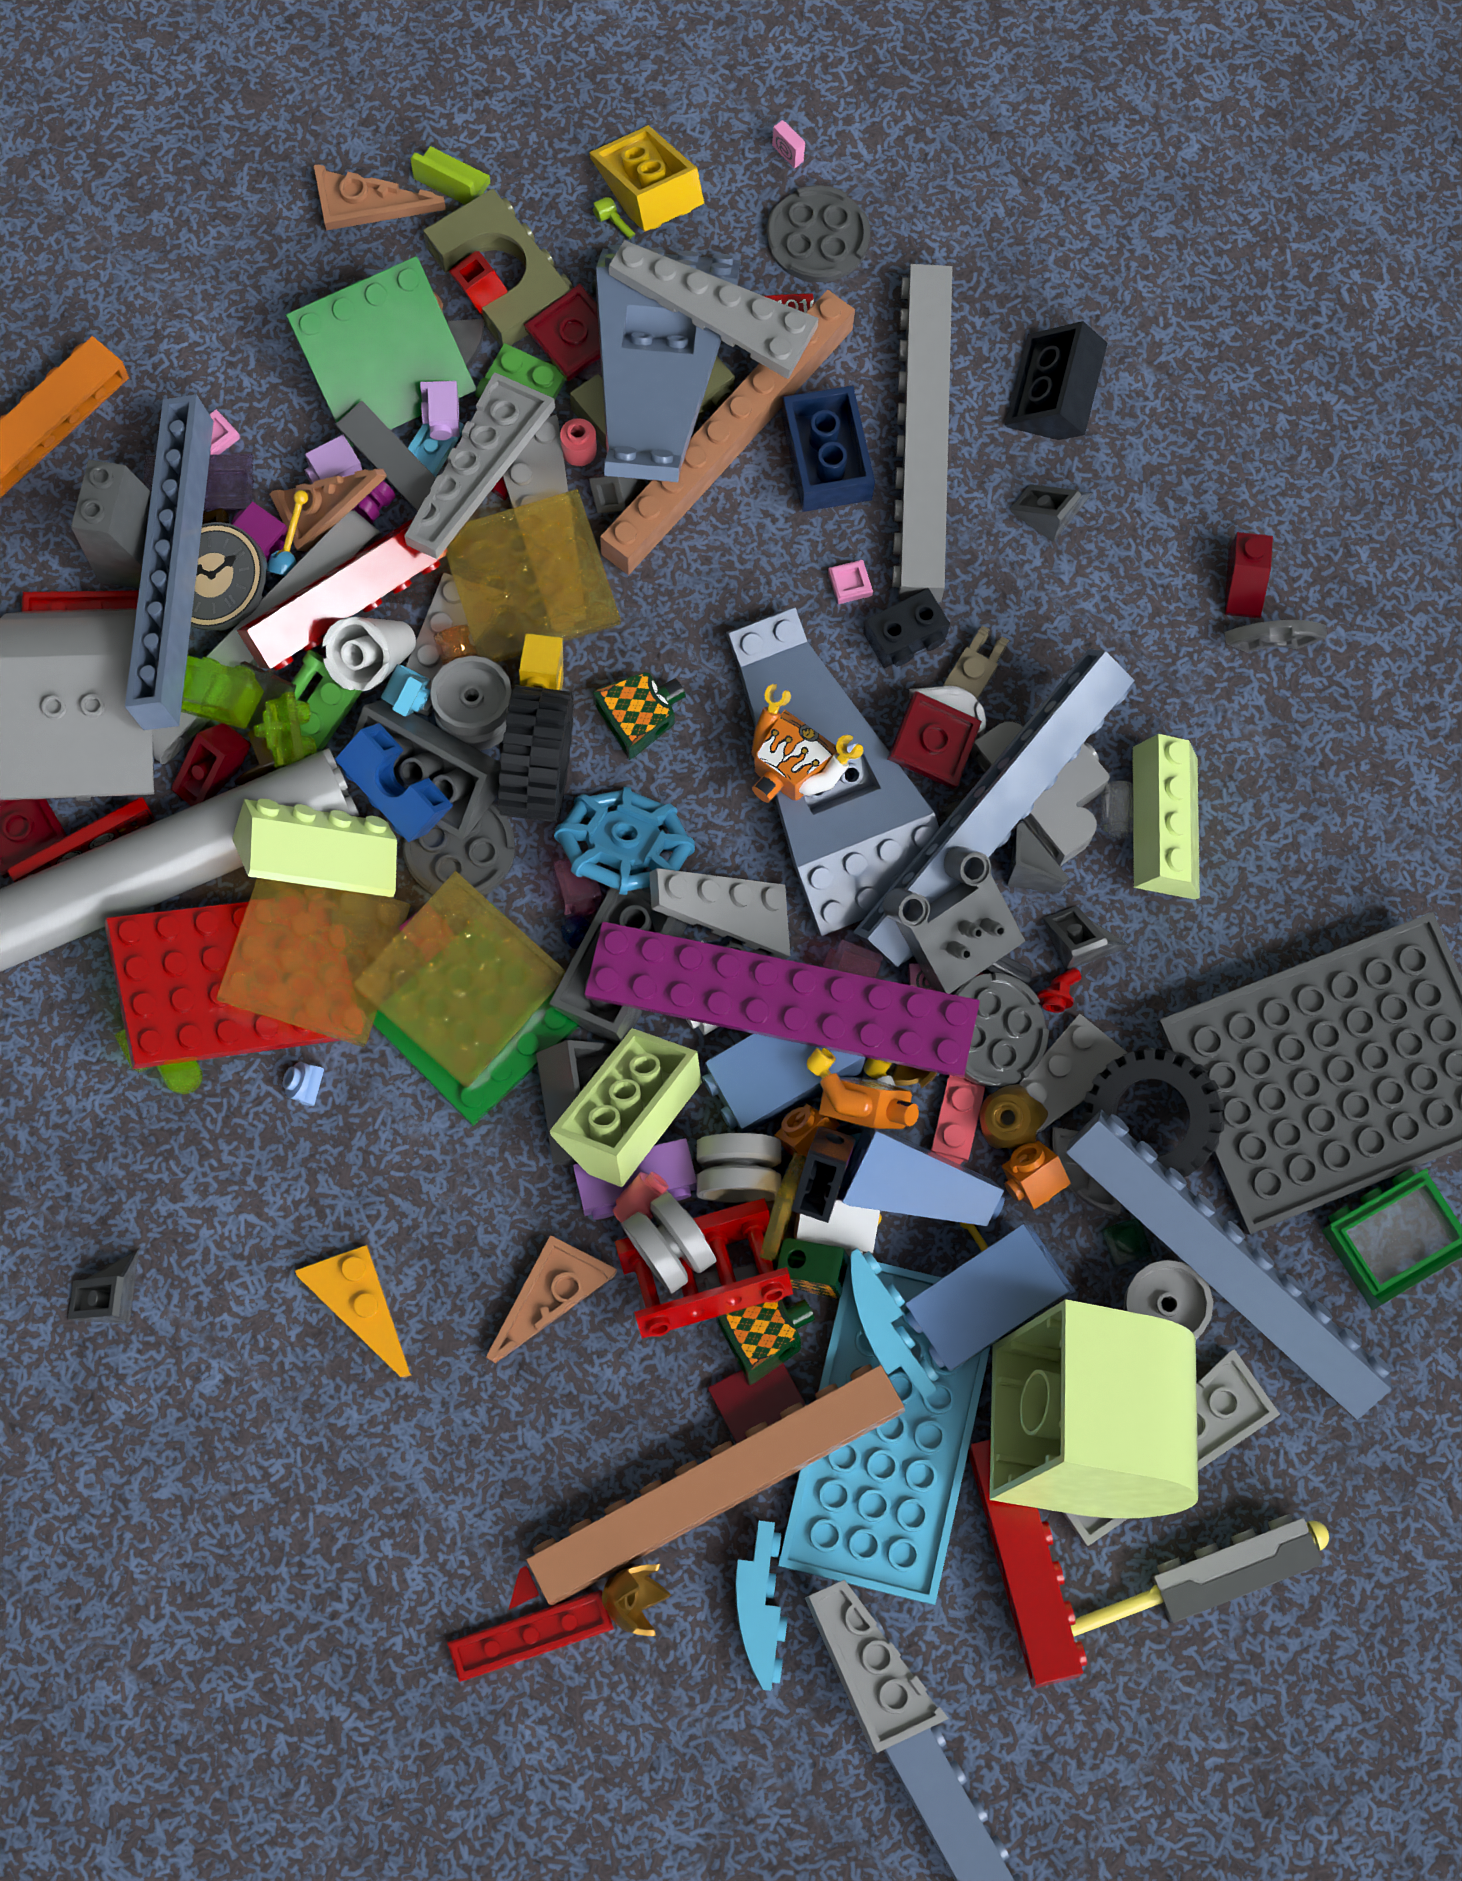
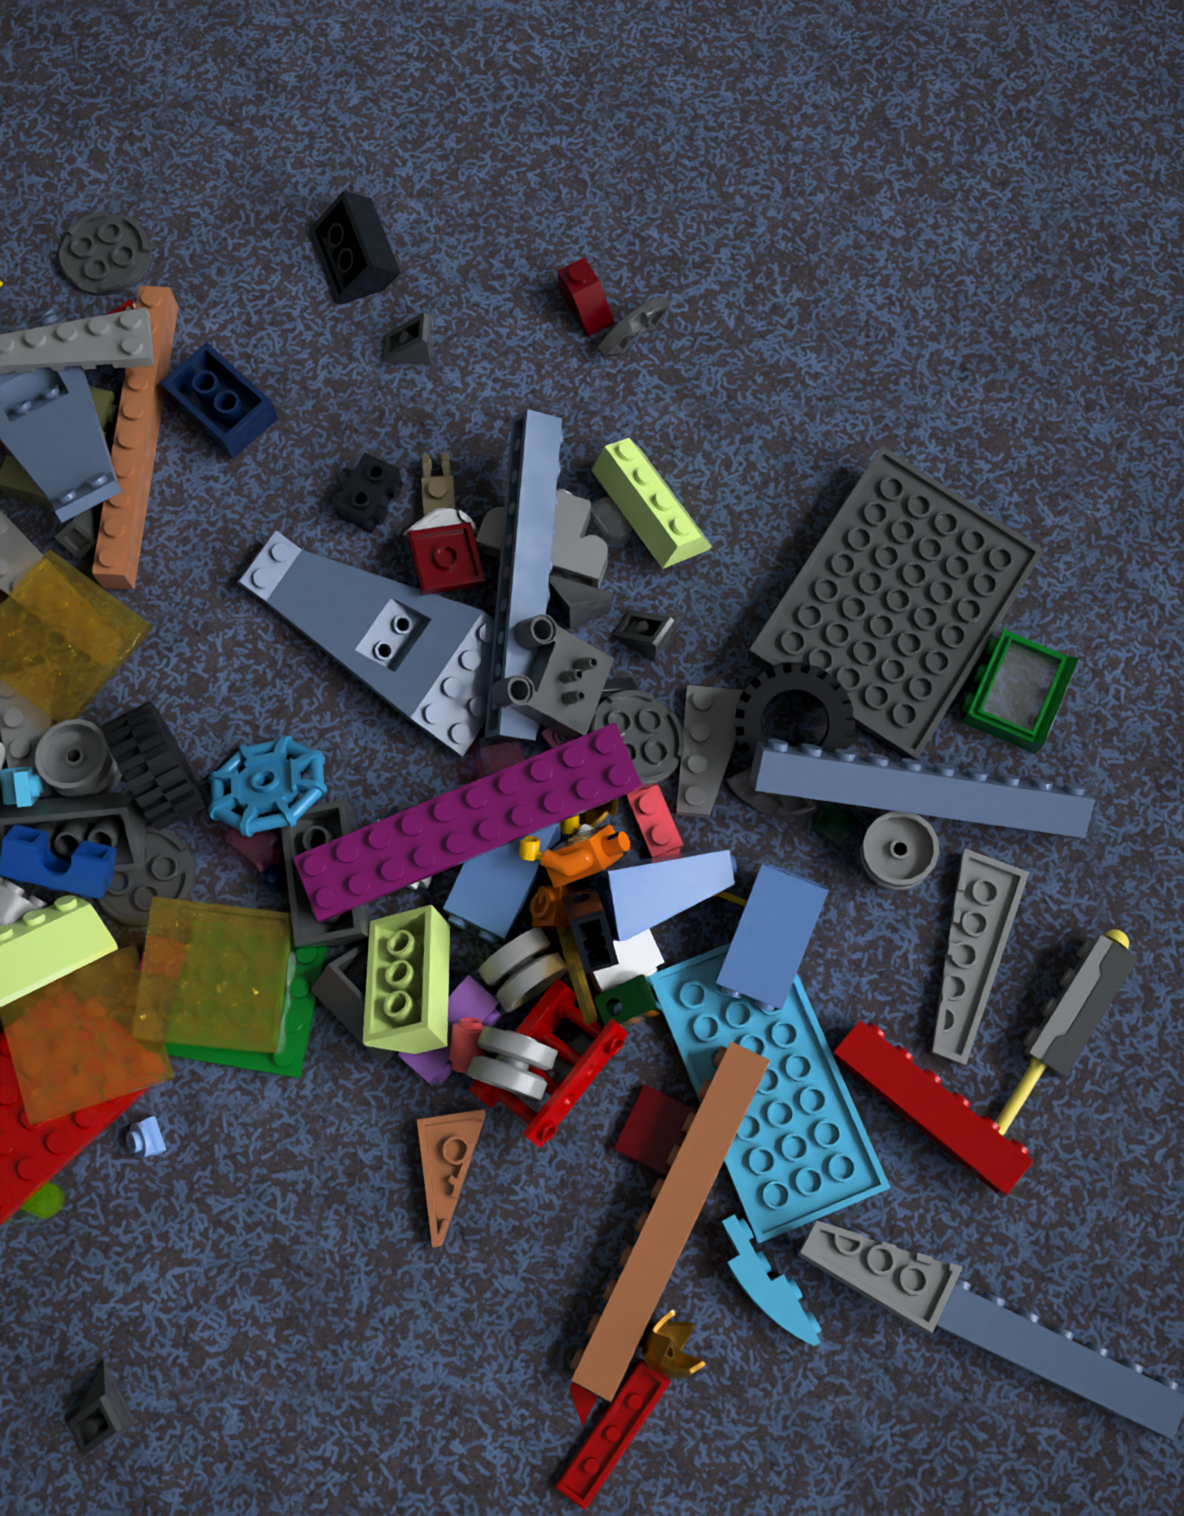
camera: 30 degrees left, 0 degrees up
(355, 1295) = (299, 1272): light orange wing -> none
(455, 643) = (33, 725): clear orange wheel -> none
(542, 662) = (111, 694): yellow brick -> none
(578, 442) = (27, 515): coral brick -> none
(638, 710) = (210, 683): torso -> none
(727, 906) = (378, 781): light grey wing -> none
(764, 1335) = (628, 1080): dark green torso -> none
(788, 143) = (37, 201): bright pink tile -> none
(795, 756) = (351, 637): torso -> none
(850, 581) = (303, 486): bright pink tile -> none
(877, 1310) = (699, 1002): medium azure slope -> none
(925, 431) = (283, 344): light grey brick -> none
(1028, 1117) = (707, 785): pearl gold piece -> none
(1034, 1174) = (738, 822): orange brick -> none
(1056, 996) = (662, 683): red plate -> none
(1095, 1414) = (909, 966): yellowish green brick -> none

